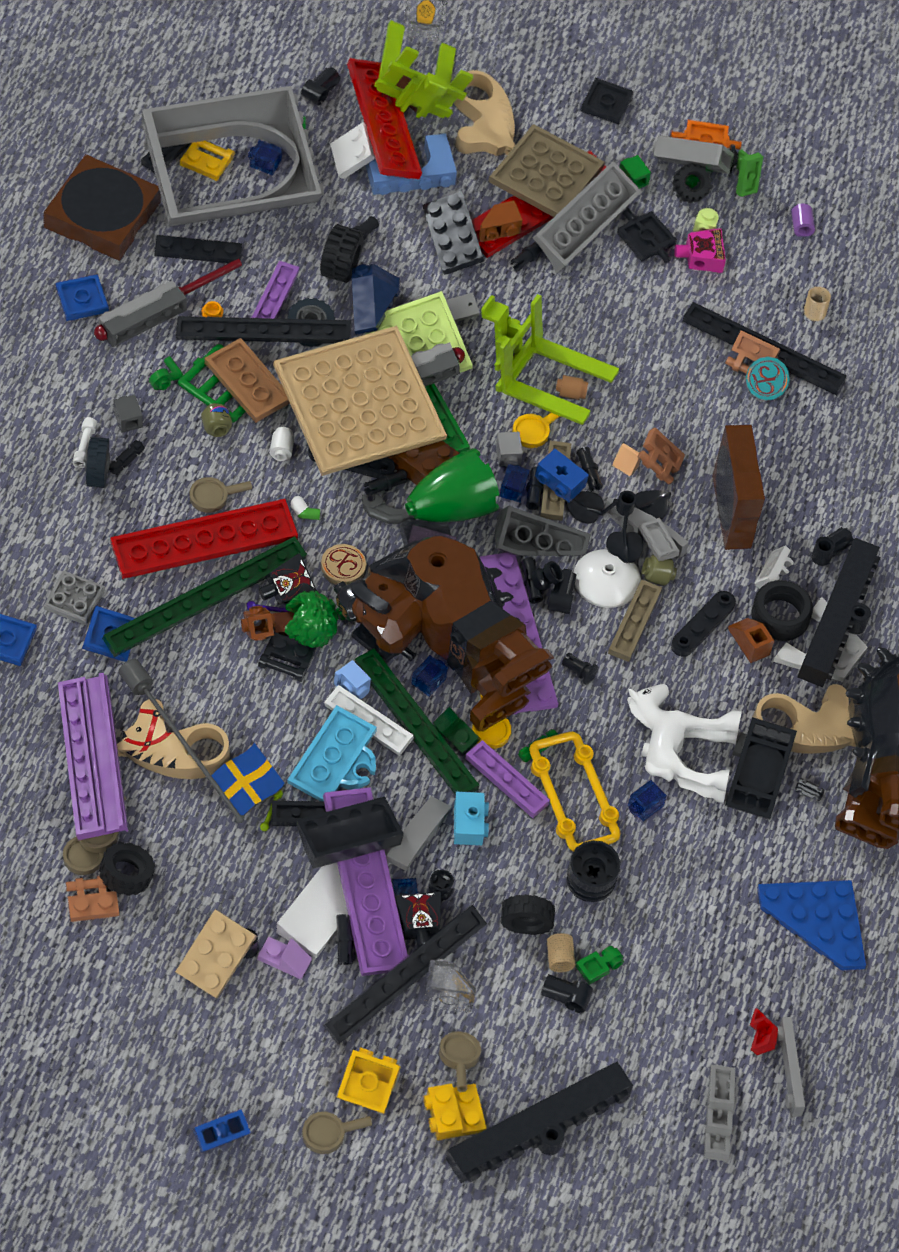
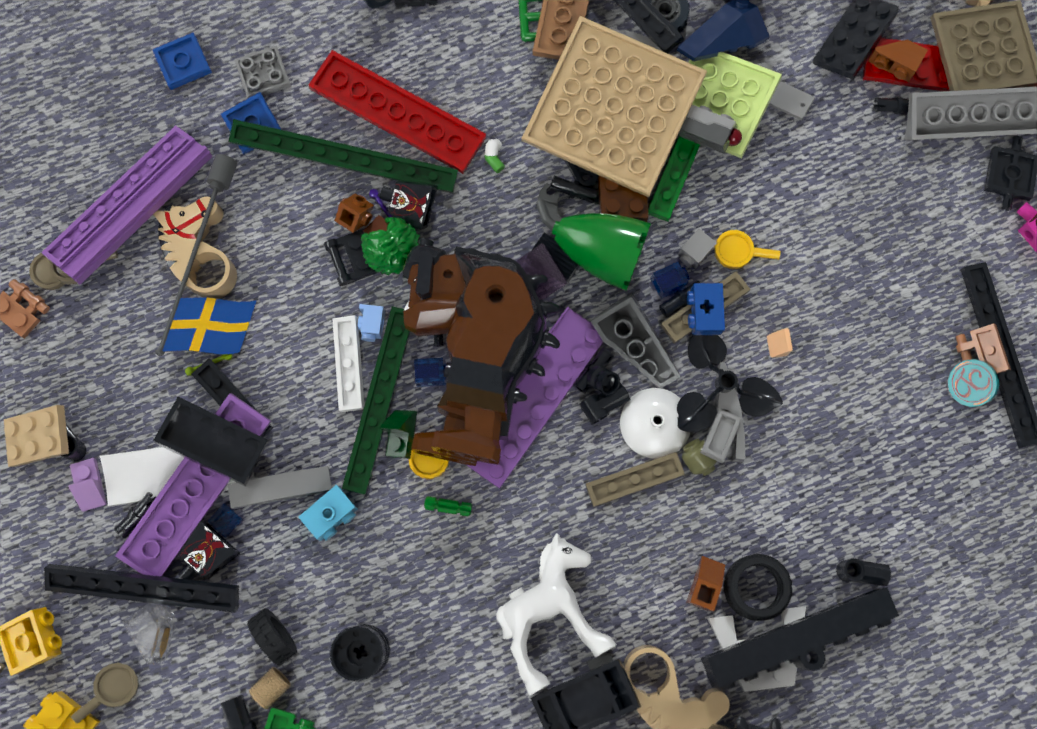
camera: 55 degrees right, 20 degrees up
(123, 883) = (53, 292): black tyre -> none
(211, 494) = (441, 82): dark tan piece -> none
(216, 420) = (507, 27): olive head -> none
(282, 444) = (532, 89): white brick -> none
(336, 756) = (290, 369): medium azure plate -> none
(343, 564) = (472, 224): tan tile -> none
(444, 881) = (244, 542): black wheel -> none
(507, 779) = (392, 510): medium lavender plate -> none
(509, 342) = (771, 183): lime piece -> none
(572, 387) = (804, 244): medium nougat brick -> none
(582, 669) = (548, 477): black pin -> none
(583, 755) = (390, 591): yellow bar -> none
(589, 467) = (742, 322): black pin -> none
(646, 801) = (471, 634): clear blue brick -> none
(664, 451) = (815, 366): nougat plate -> none
(703, 623) = (686, 533): black plate -> none
(738, 487) = (831, 455): reddish brown tile -> none
(775, 566) = (794, 543): white plate -> none

